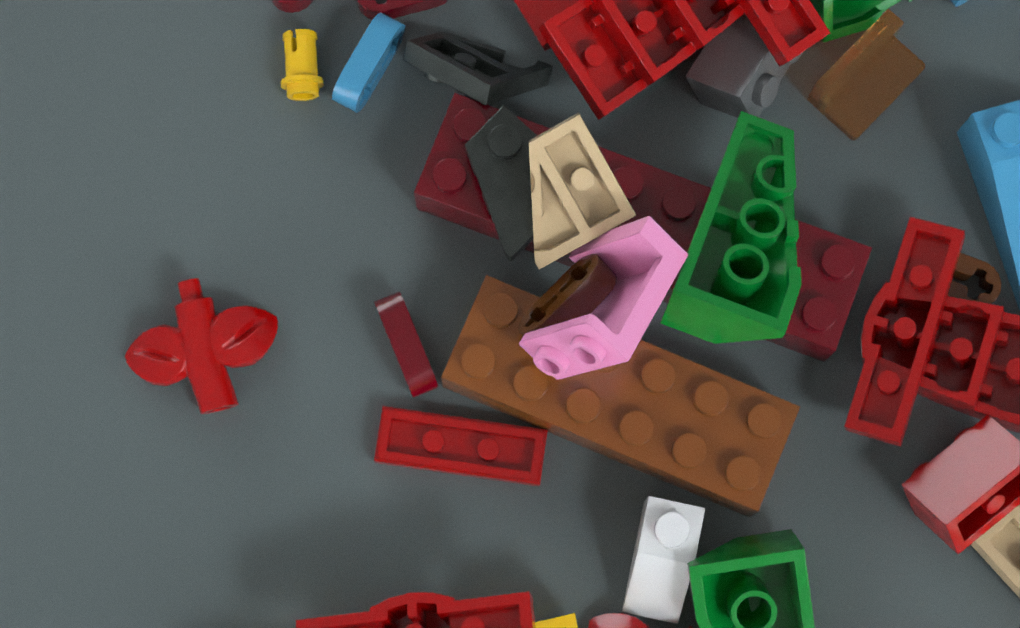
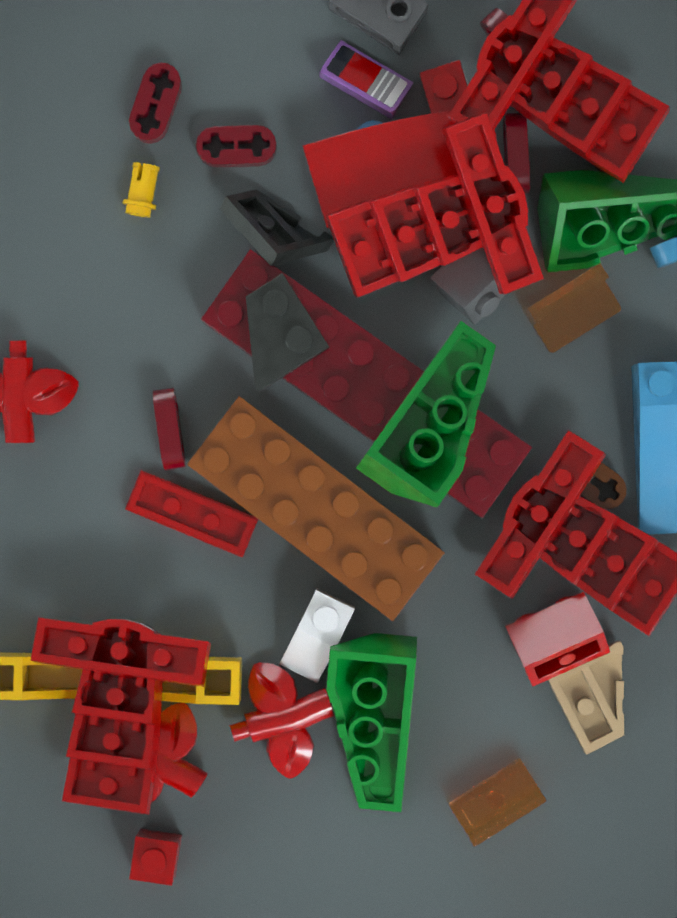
camera: 15 degrees right, 10 degrees up
(368, 62) = (193, 202): dark azure beam -> none
(571, 191) = (314, 356): tan wing -> none
(572, 295) = (290, 437): reddish brown beam -> none
(645, 268) = (324, 451): bright pink panel -> none

